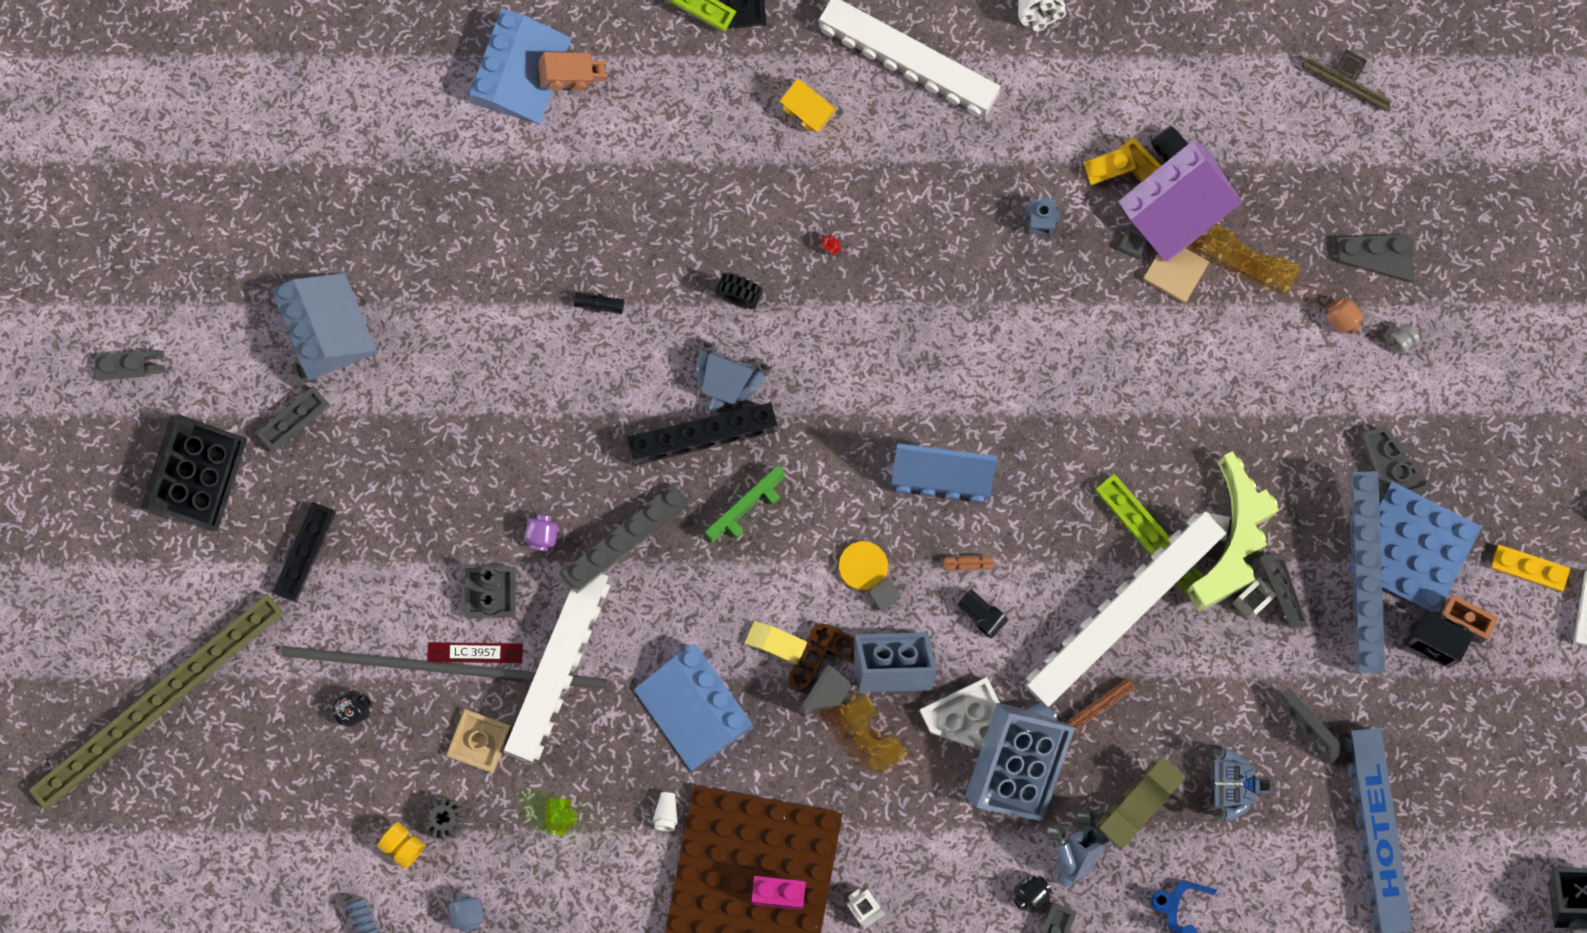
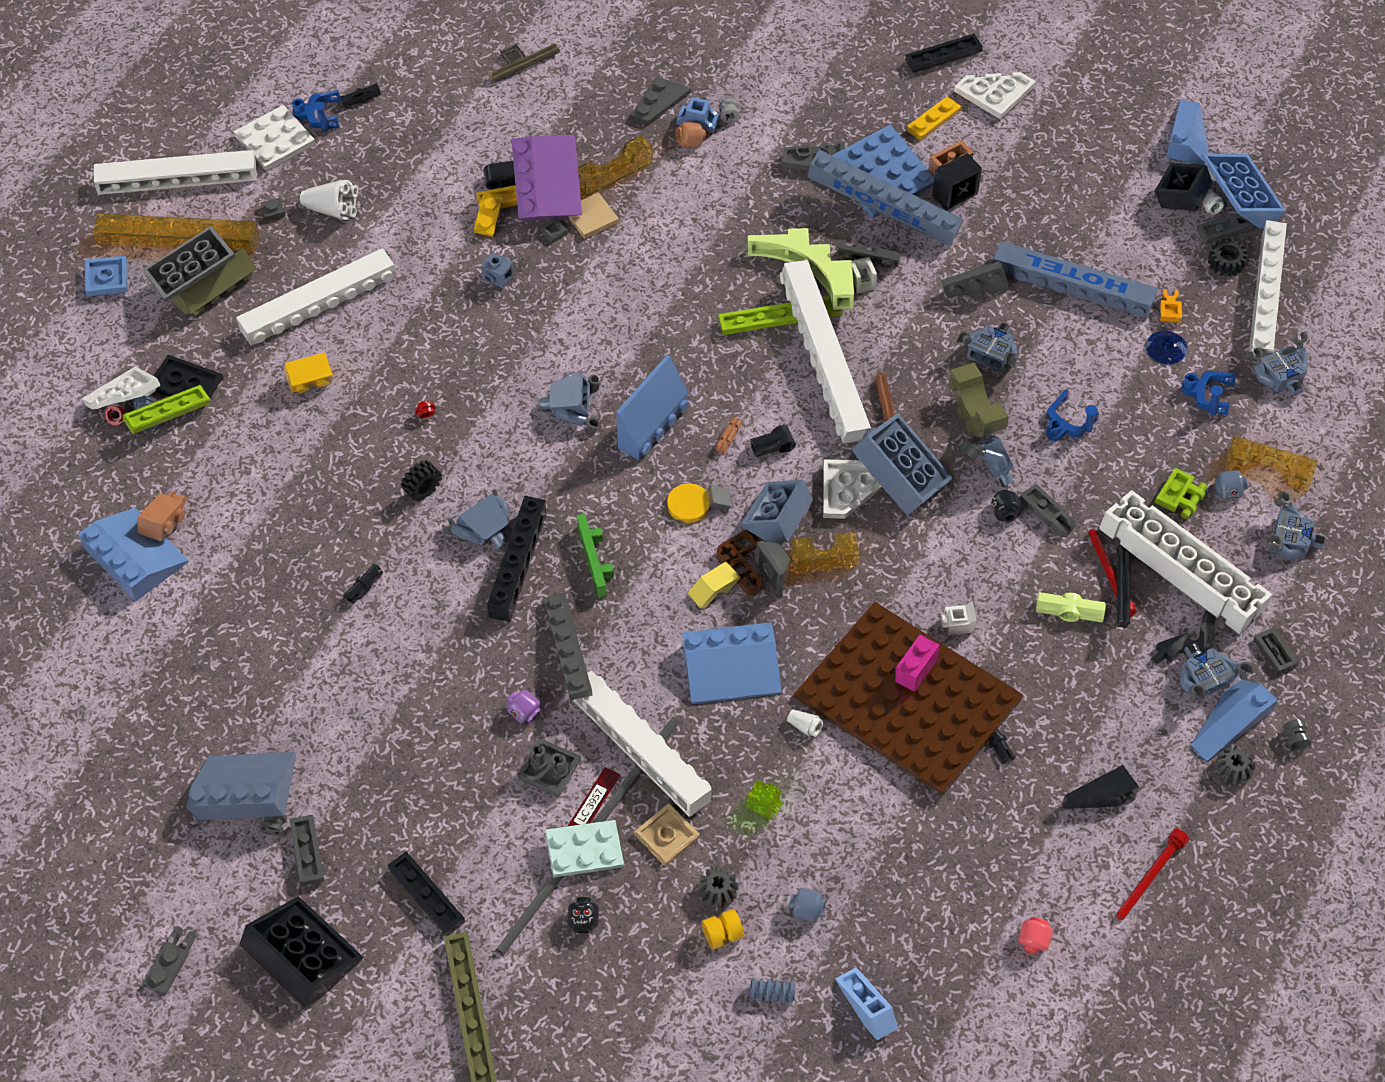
camera: 60 degrees left, 20 degrees down
(421, 672) = (584, 848): none -> light aqua plate
(919, 381) = (571, 399): none -> sand blue torso
(1376, 311) = (699, 111): none -> medium blue brick

